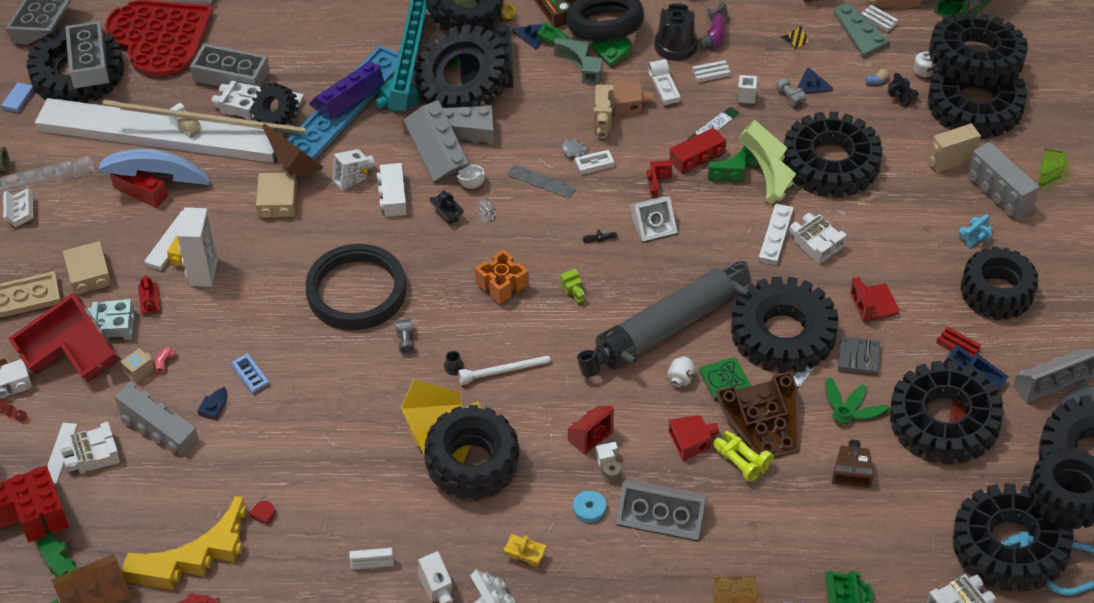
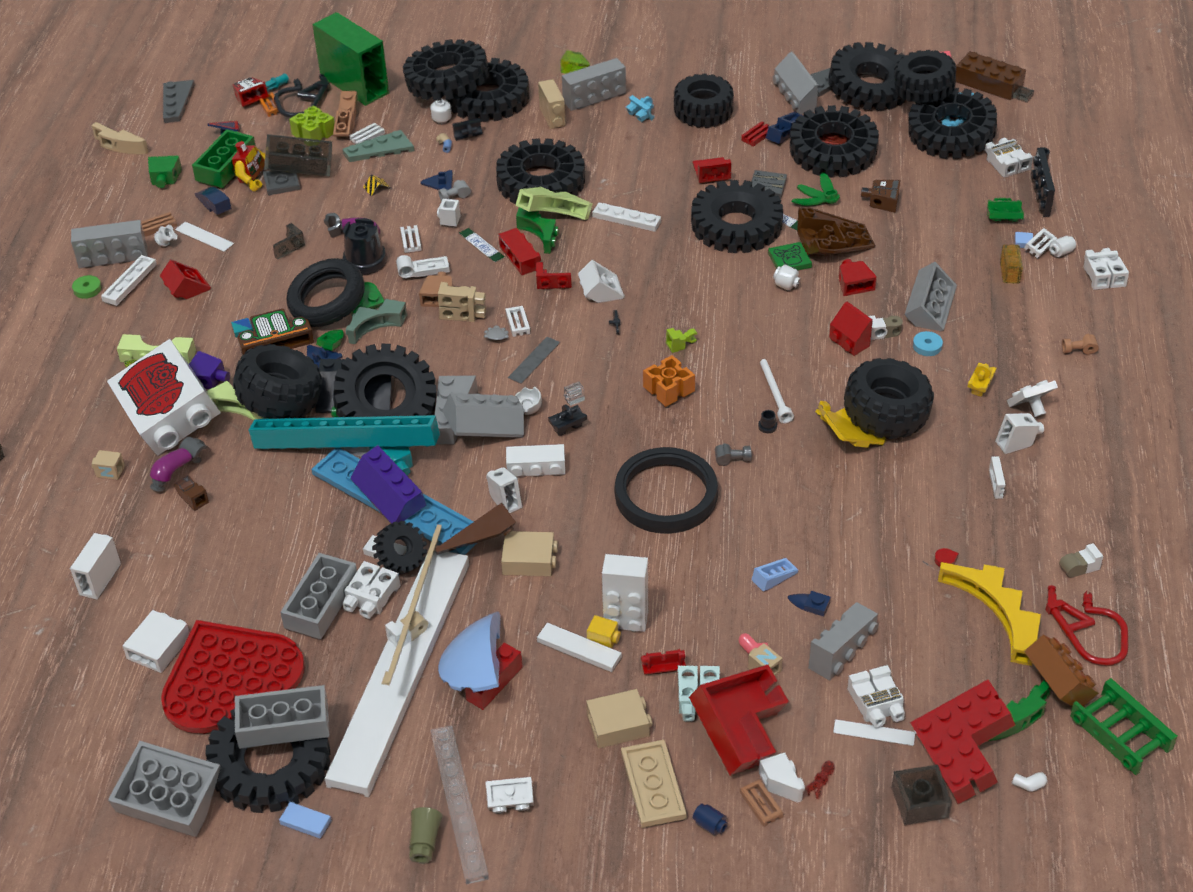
camera: 85 degrees left, 5 degrees down
(665, 318) = (732, 279): dark grey piece -> none
(734, 444) = (883, 243): neon yellow piece -> none
(817, 237) = (638, 191): white hips -> none

